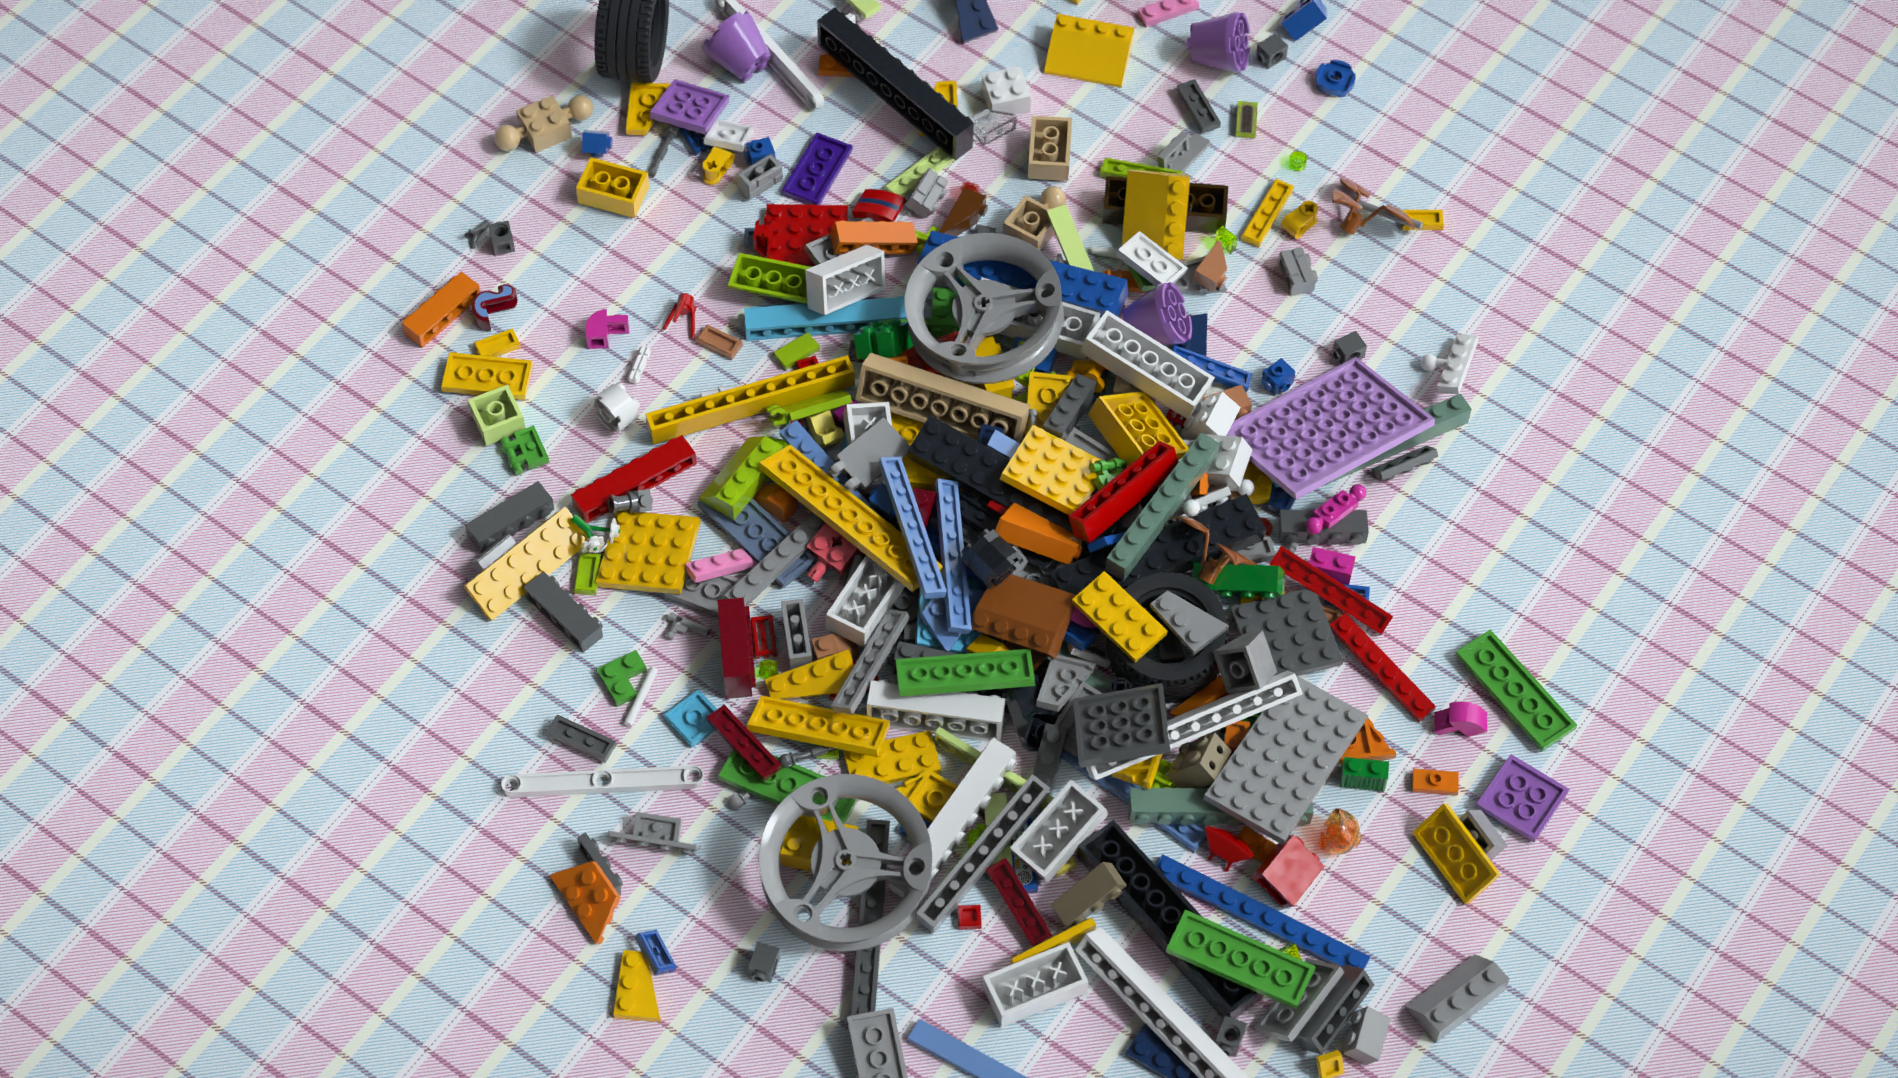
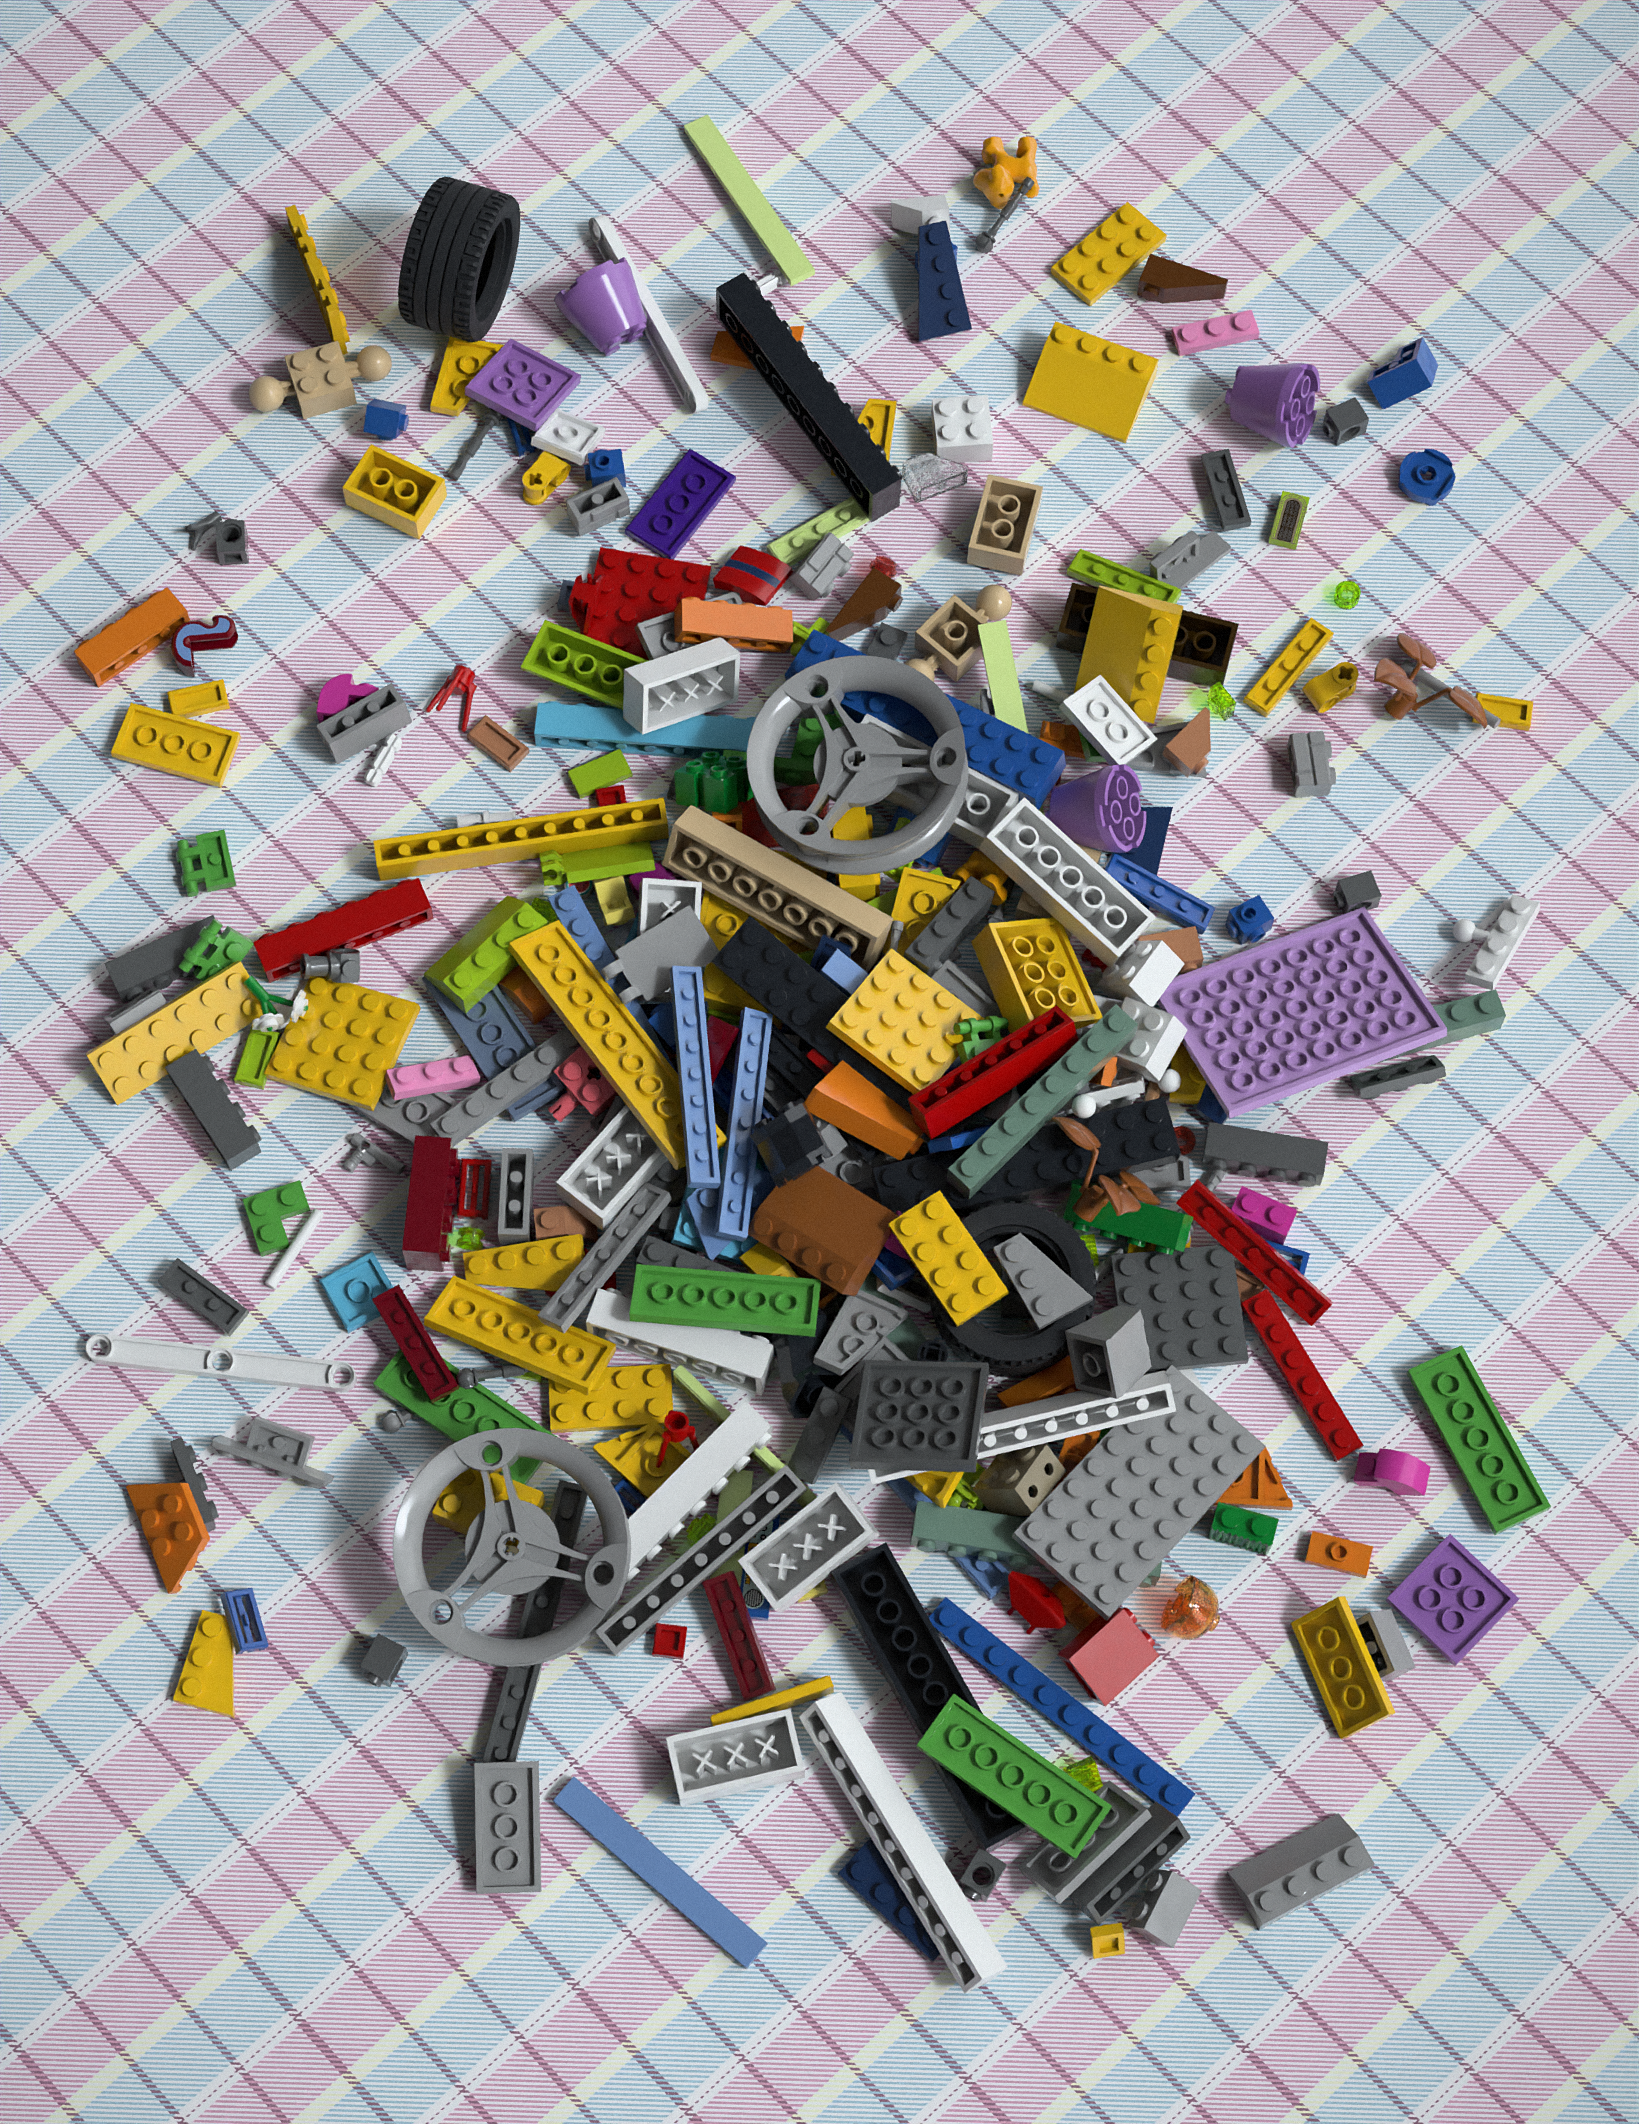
camera: 10 degrees right, 10 degrees up
(496, 414) = (176, 807): yellowish green brick -> none
(533, 62) = (318, 278): none -> yellow wing
(552, 502) = (226, 950): none -> bright green plate
(616, 407) = (337, 823): white brick -> none
(621, 340) = (364, 723): none -> light grey brick
(946, 767) = (676, 1430): none -> red plant
(1089, 894) = (831, 1645): dark tan brick -> none
(1335, 509) = (1284, 1135): dark pink plate -> none

